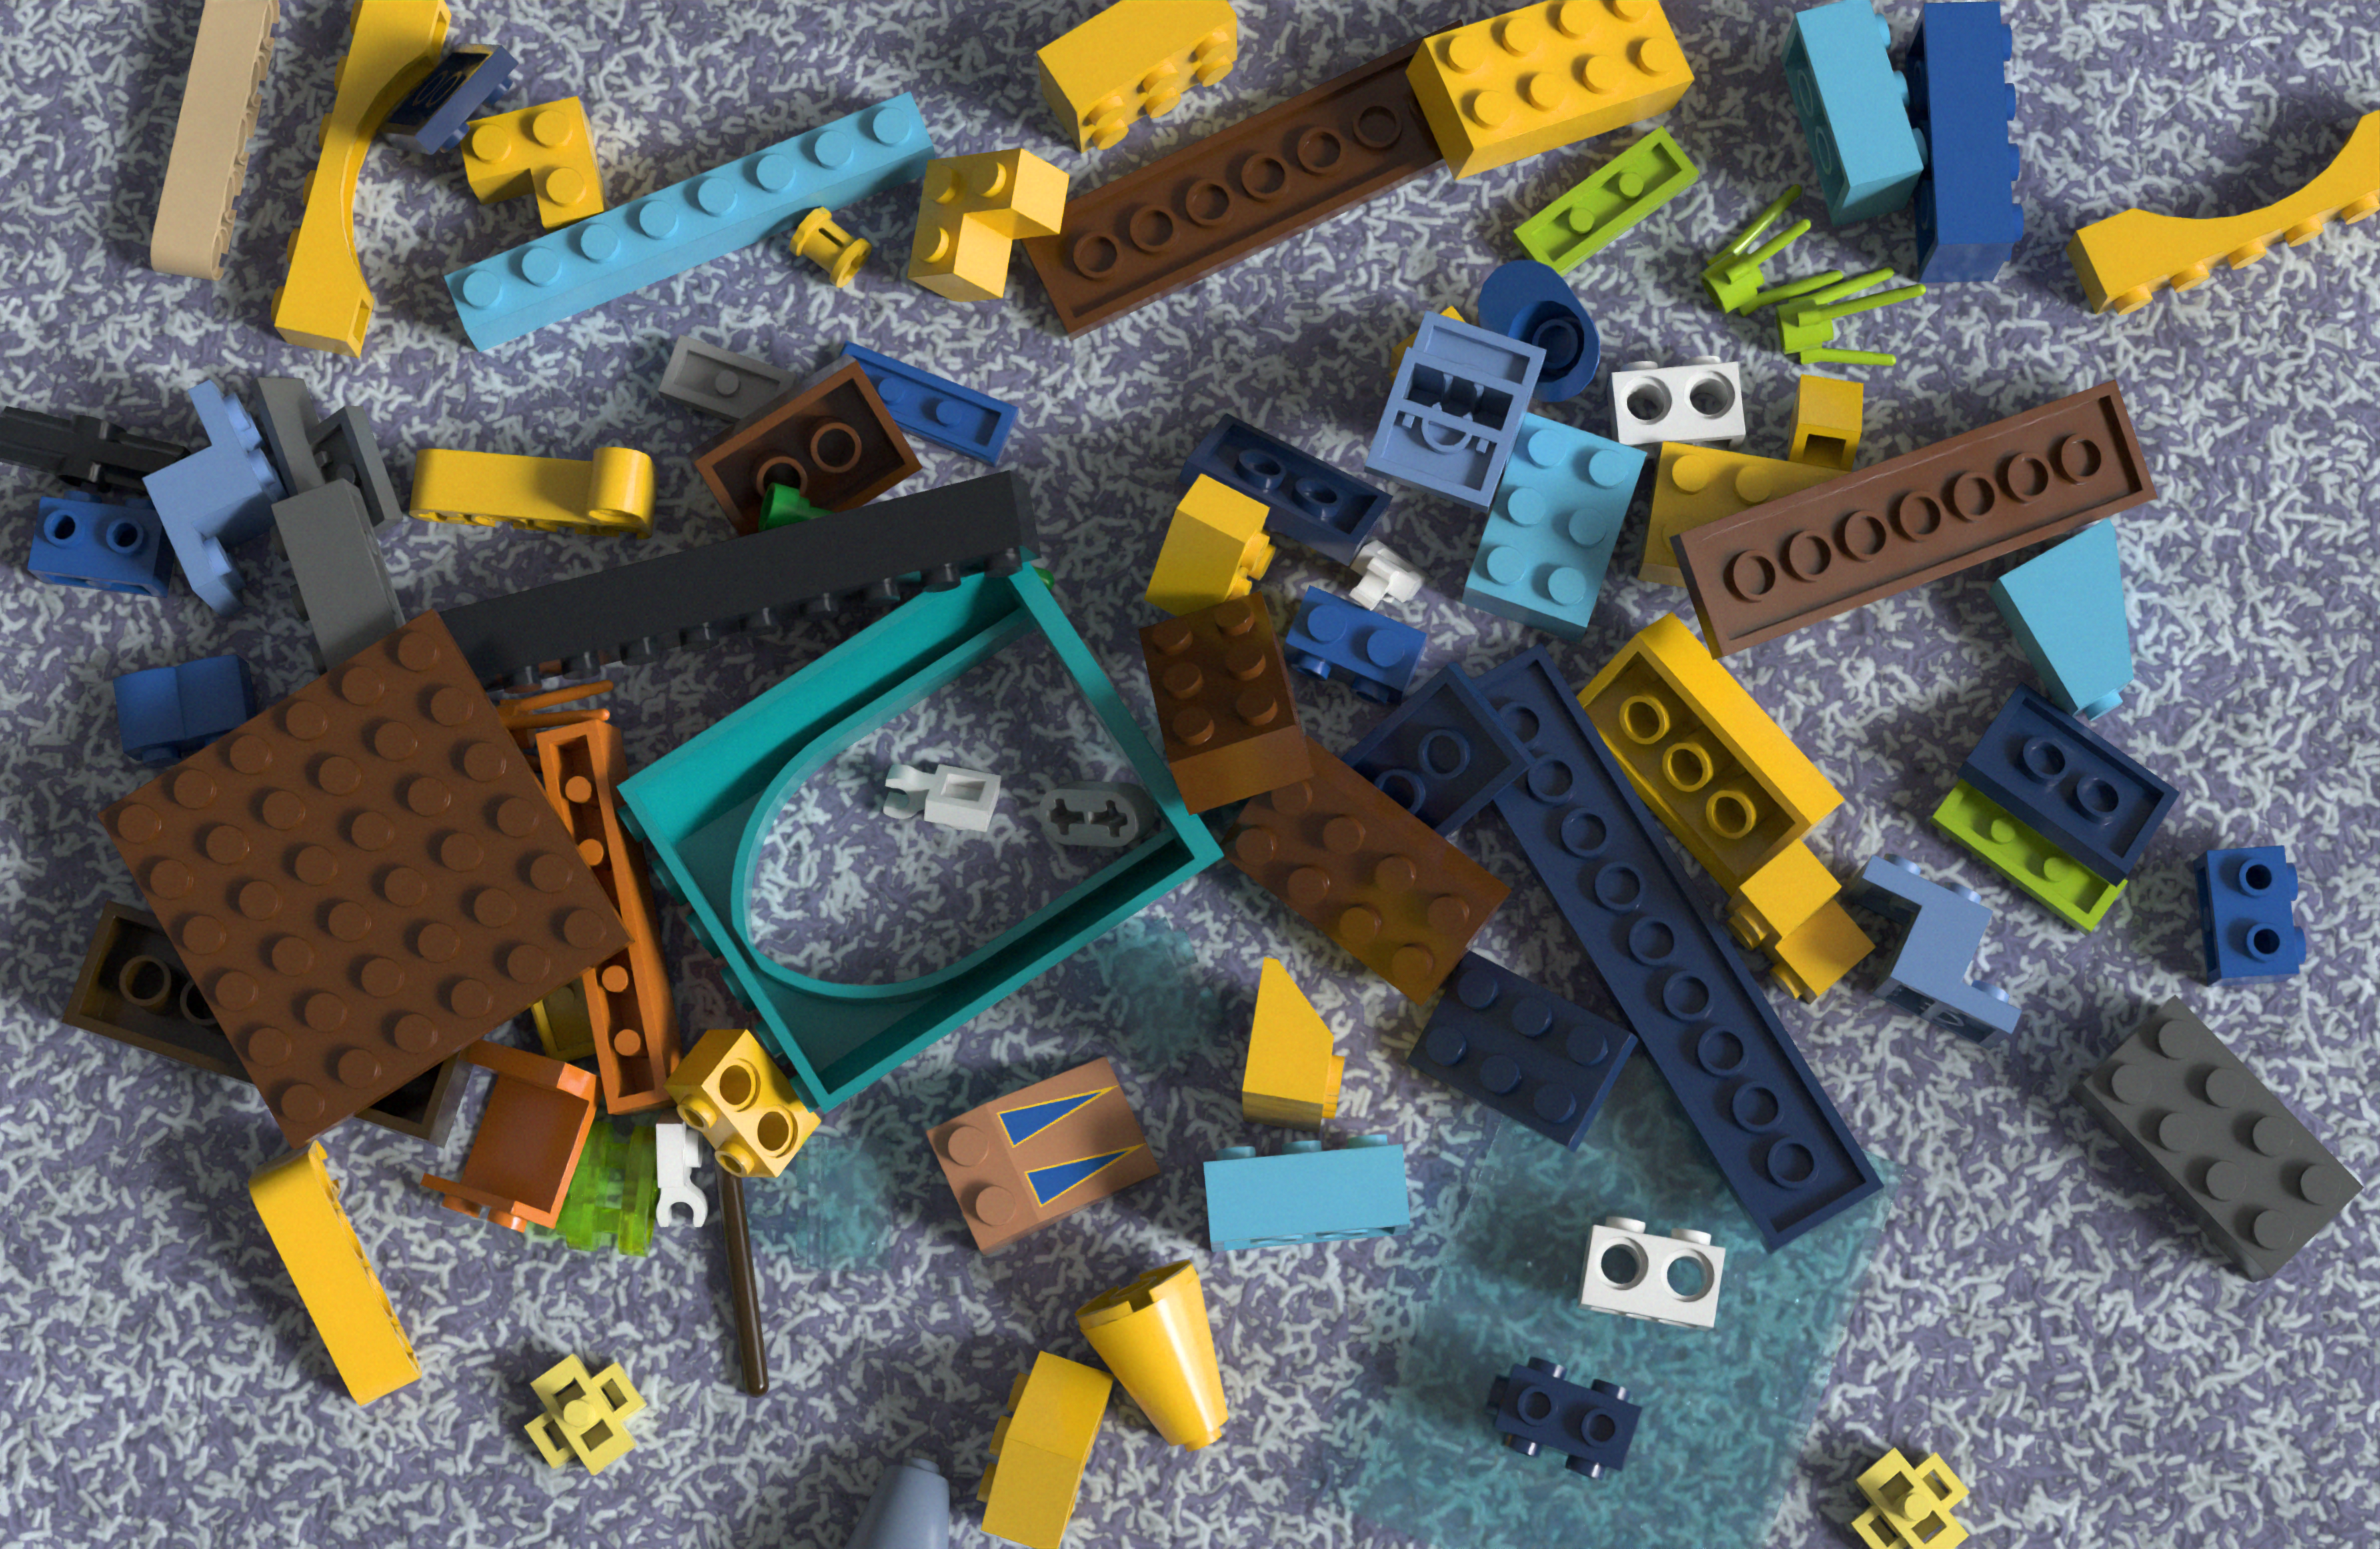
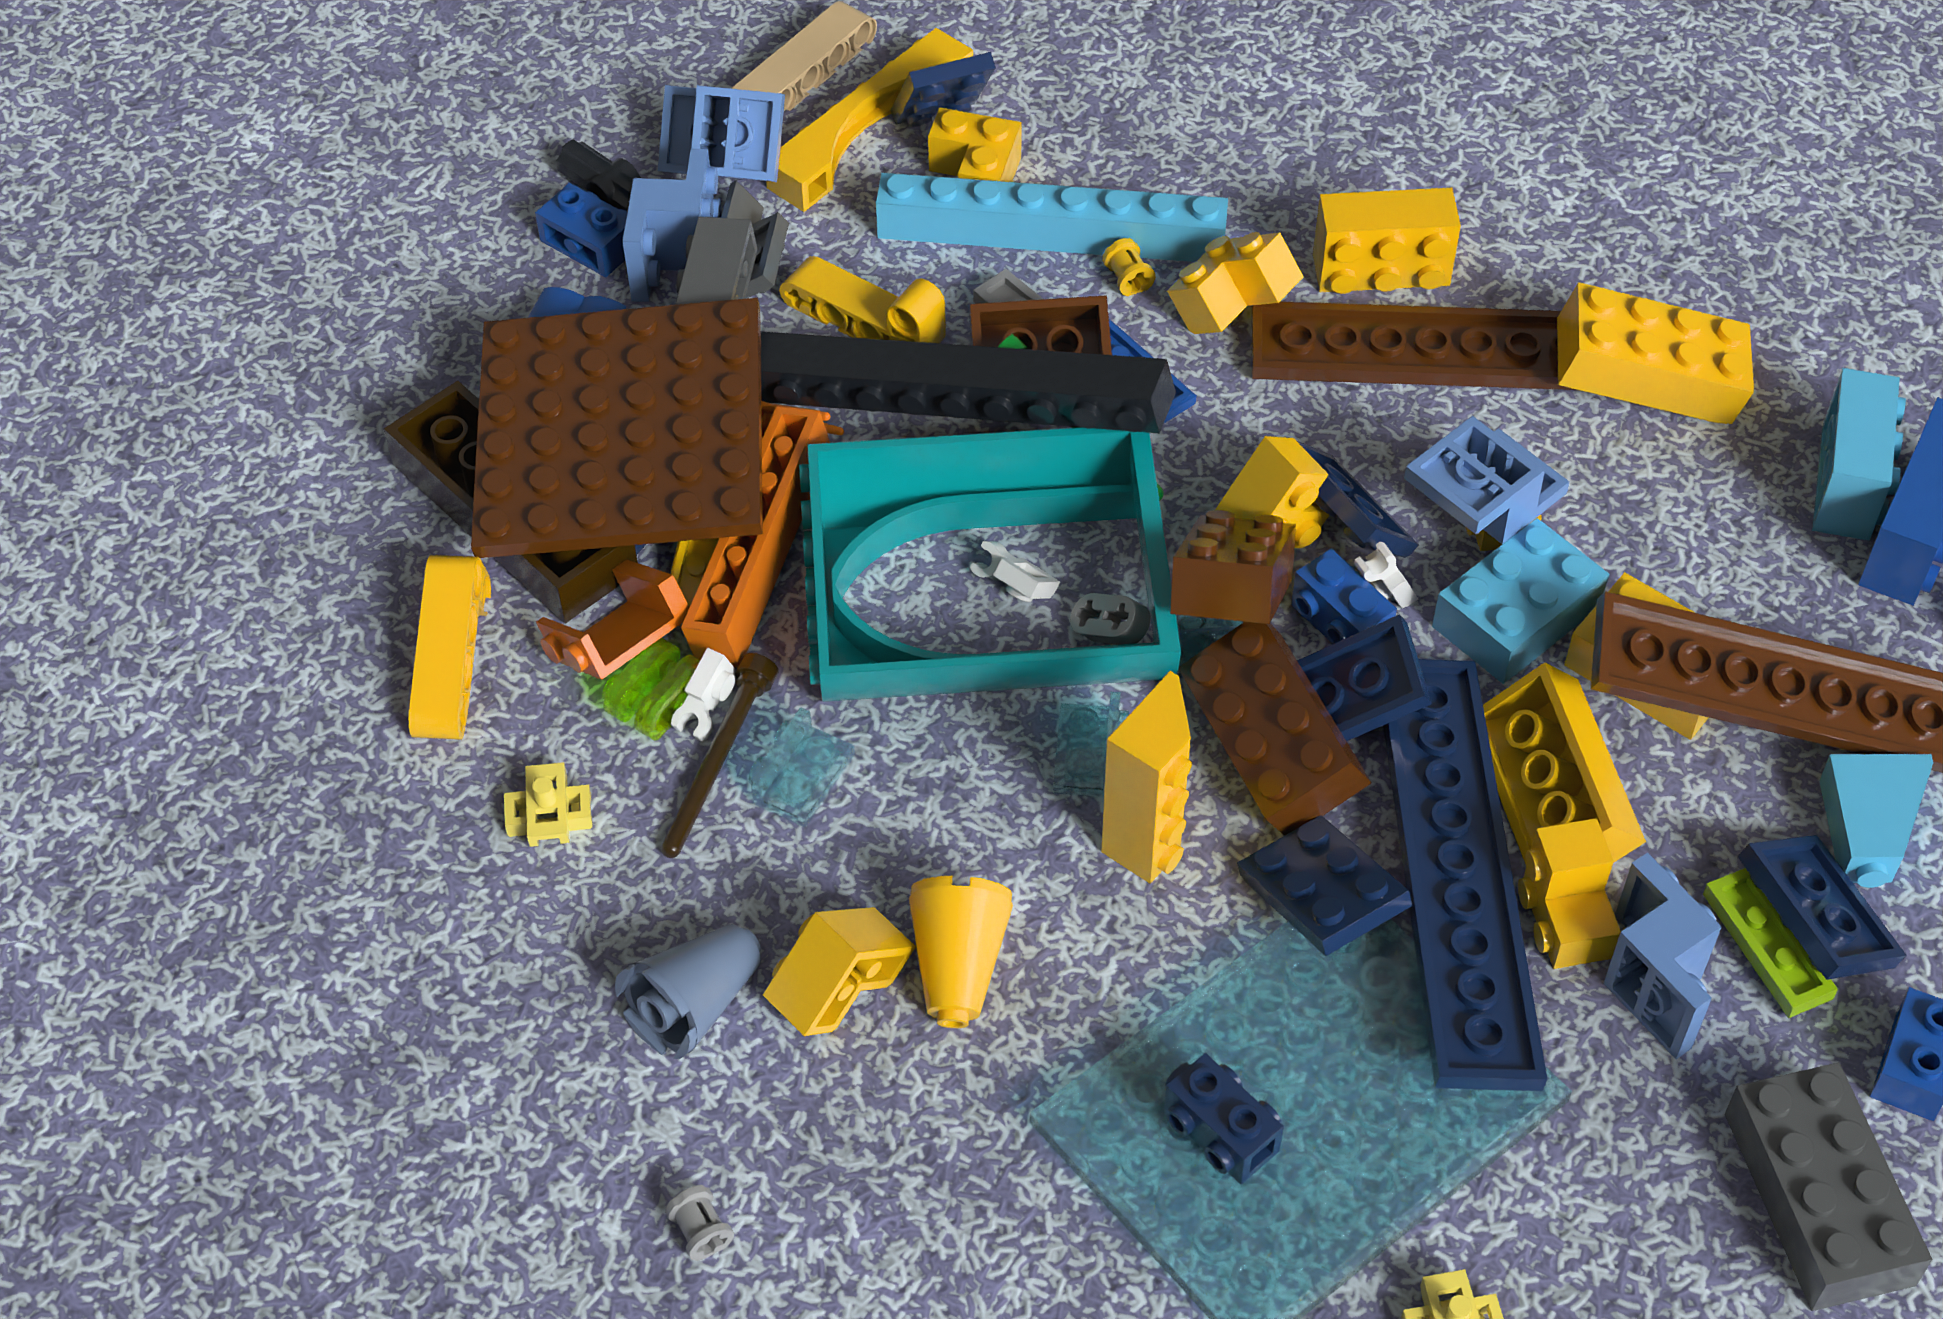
camera: 25 degrees right, 25 degrees down
(195, 317) = (734, 125): none -> medium blue bracket
(753, 1116) = (781, 662): yellow brick -> none
(1042, 1154) = (947, 799): nougat slope -> none
(1306, 1194) = (1116, 894): medium azure brick -> none
(1539, 308) = (1589, 489): blue piece -> none
(1607, 203) = (1655, 449): lime plate -> none
(1649, 1293) = (1328, 1066): white brick -> none
(1671, 393) = (1655, 563): white brick -> none
(1734, 278) = (1728, 520): lime plant -> none
(1808, 319) = (1765, 566): lime plant -> none
(1825, 422) = (1751, 609): yellow brick -> none

